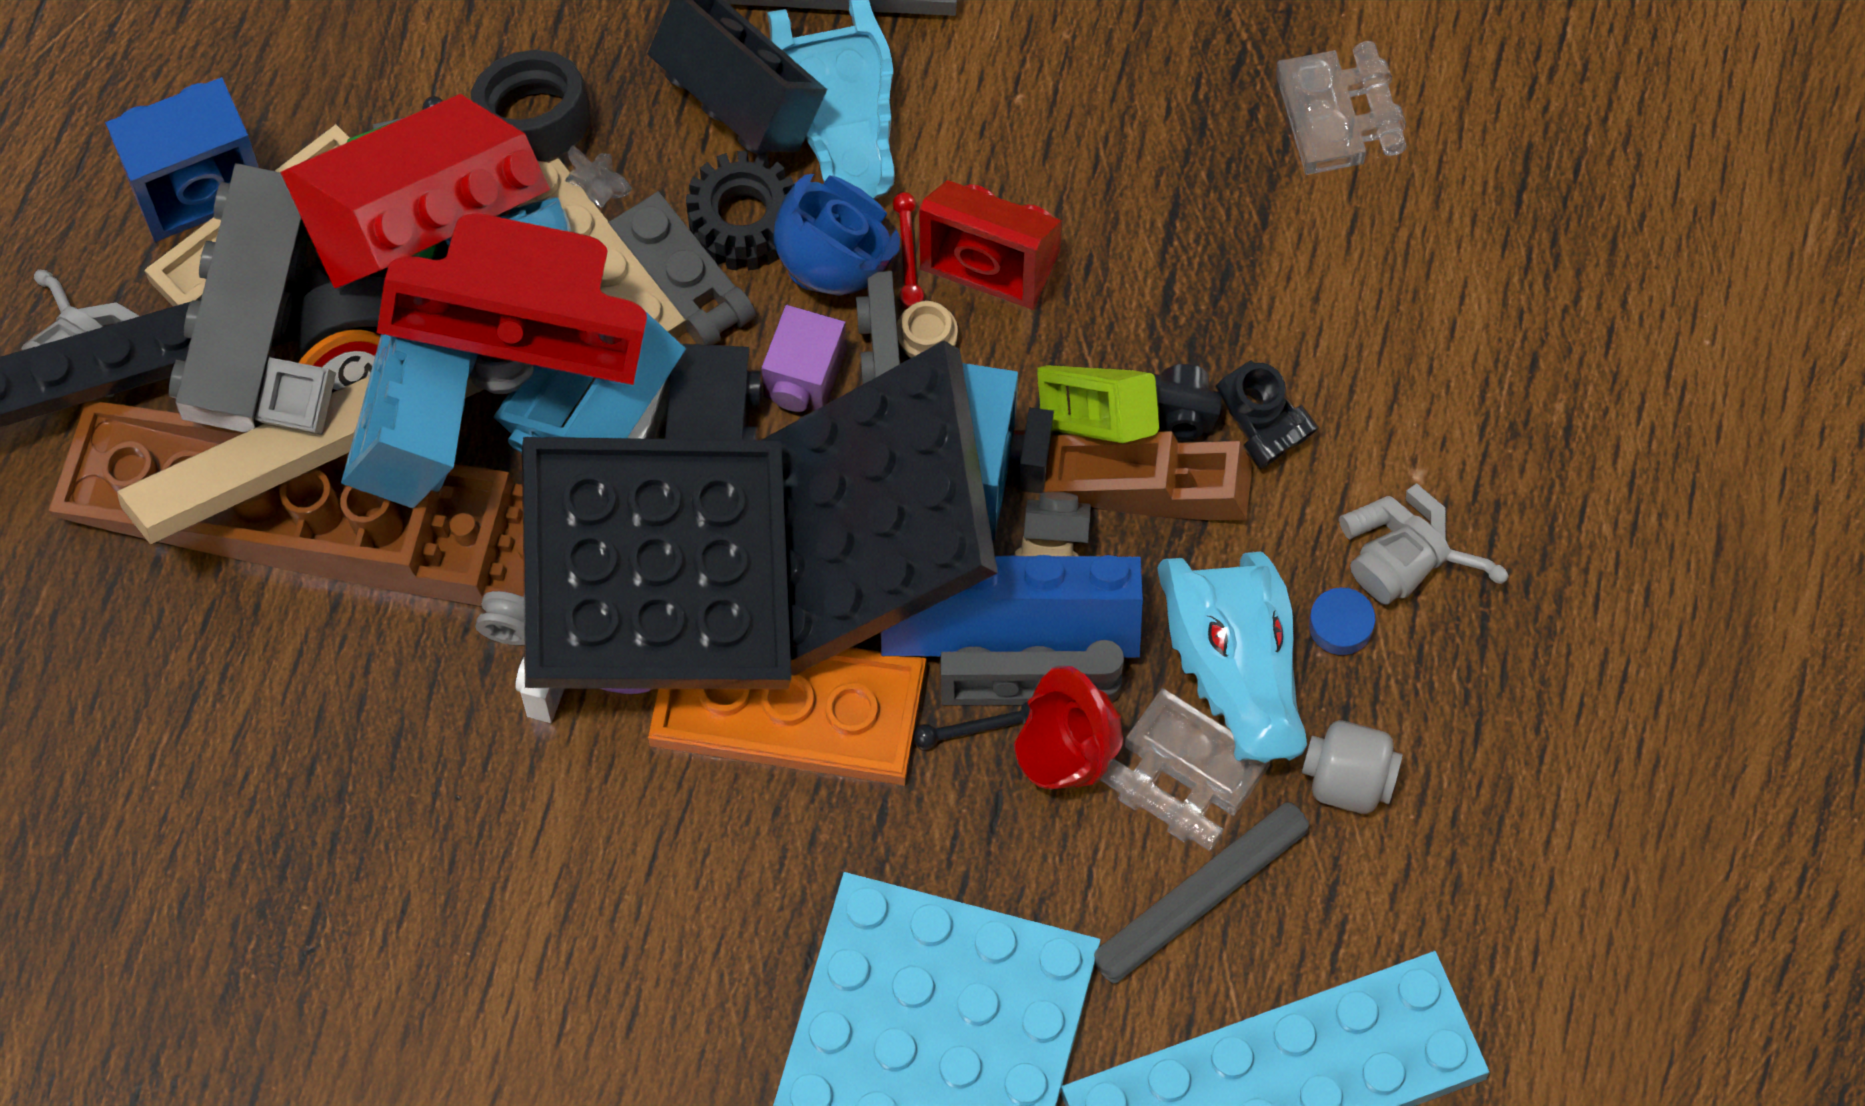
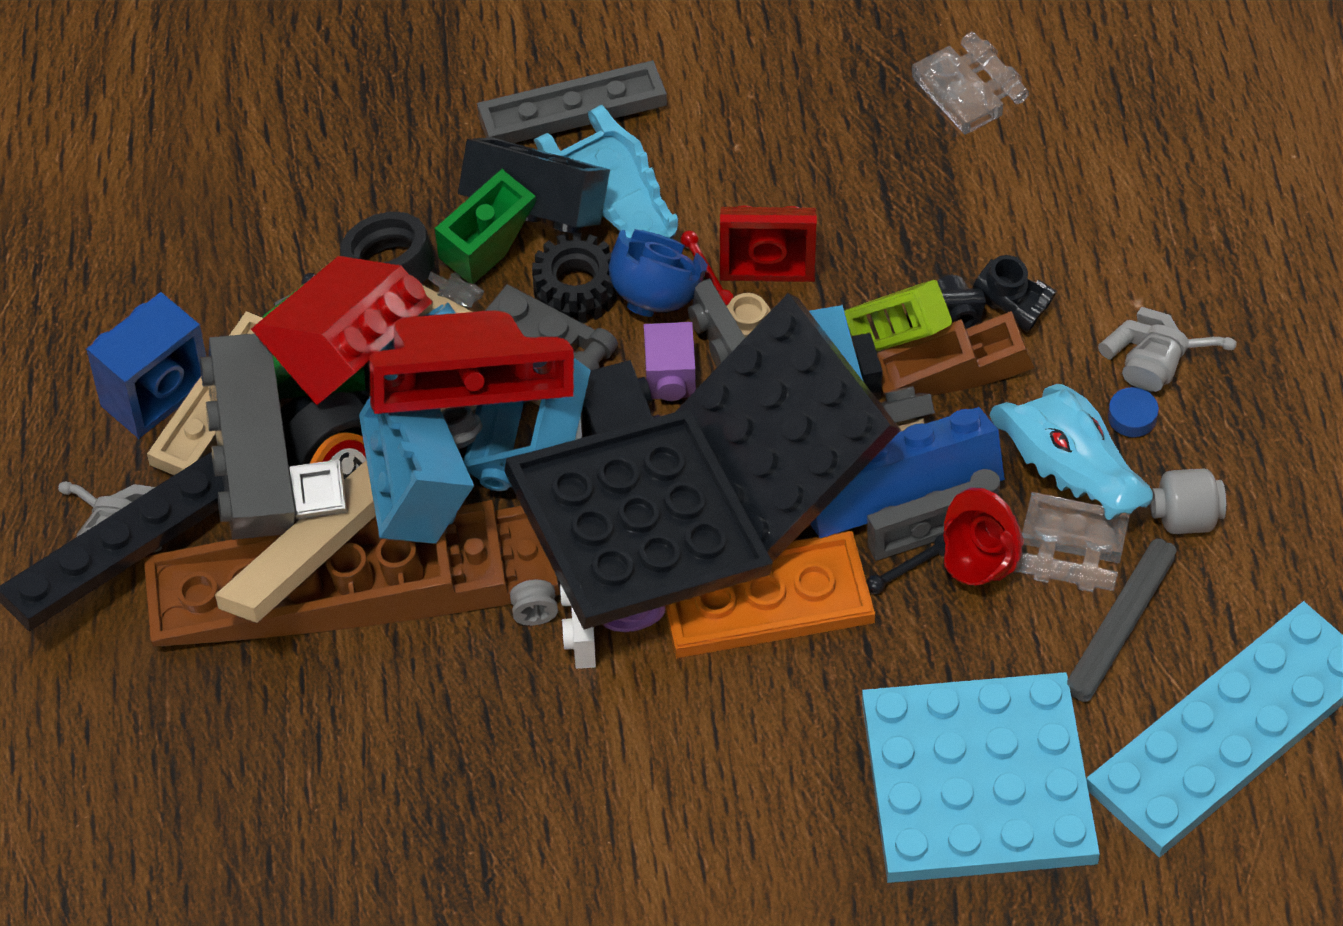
camera: 20 degrees left, 10 degrees down
(655, 109) = (484, 227): none -> green slope

